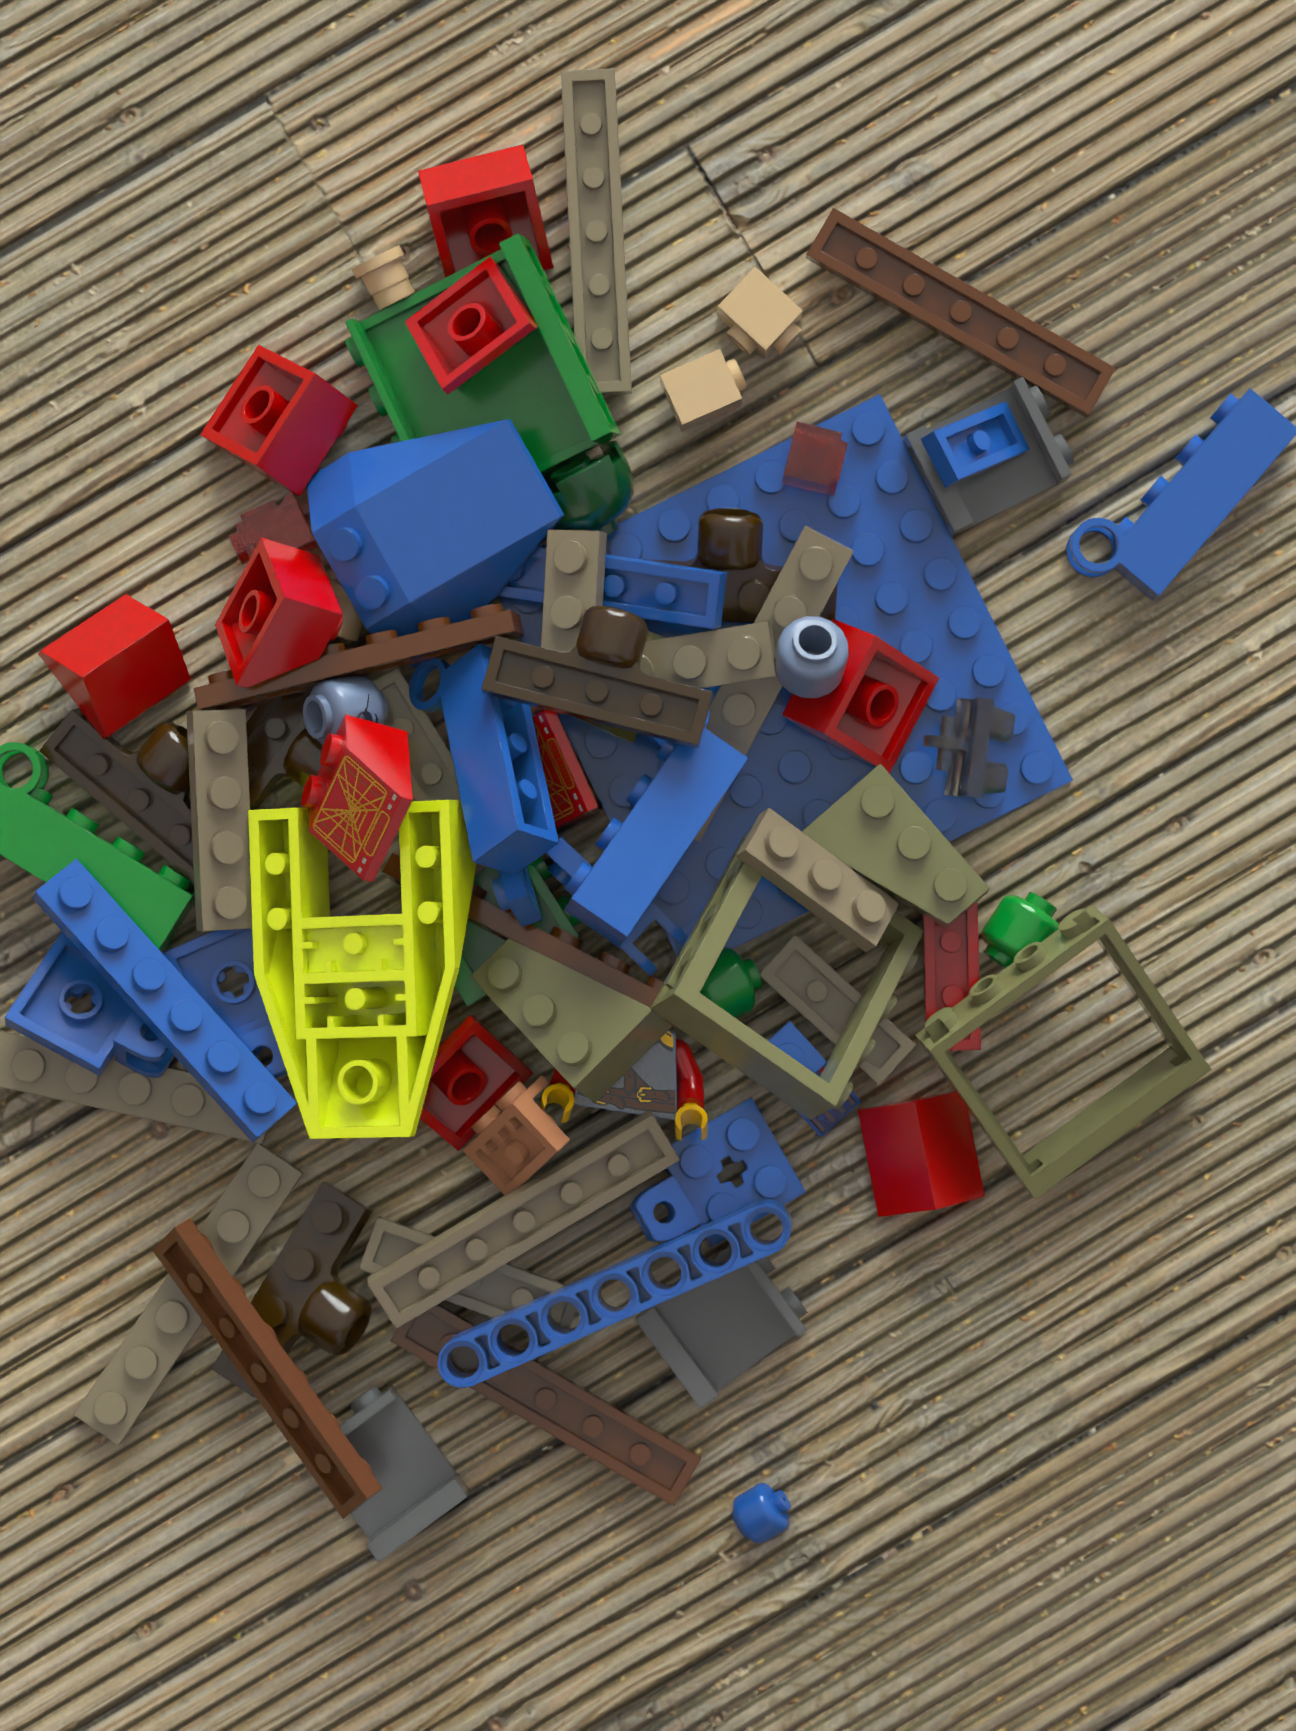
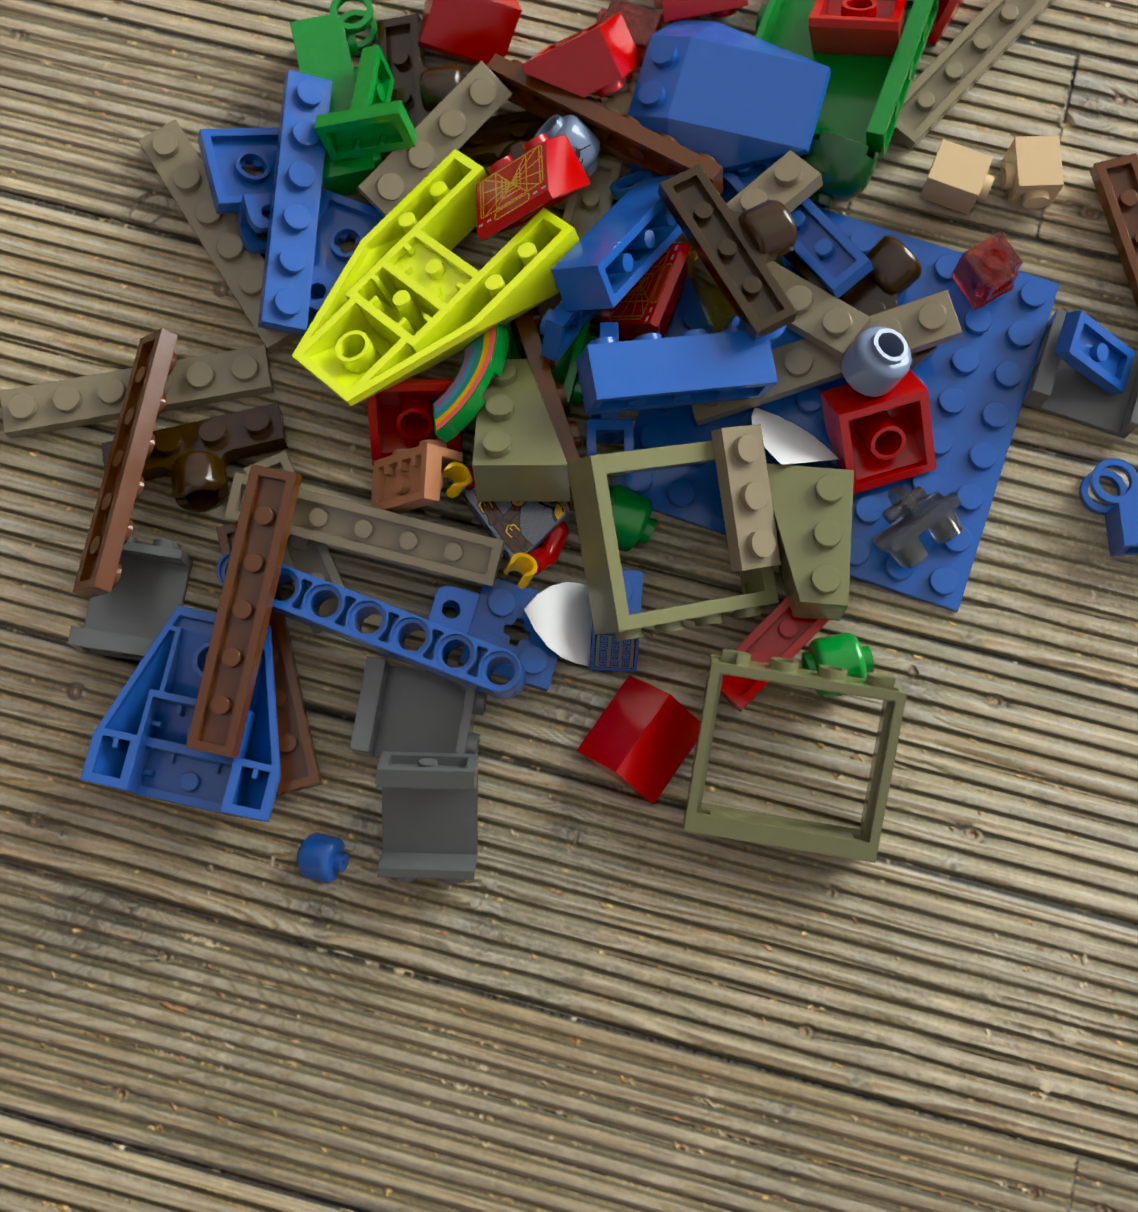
camera: 45 degrees right, 10 degrees down
(157, 870) = (372, 120): none -> green bracket
(497, 1033) = (463, 397): none -> tile
(509, 1391) = (244, 611): none -> reddish brown plate
(554, 1512) = (148, 726): none -> blue wedge
(761, 1124) = (564, 620): none -> white sticker
(794, 783) = (788, 441): none -> white sticker
(820, 1396) = (428, 816): none -> dark grey panel
(829, 1003) = (677, 583): dark tan plate -> none

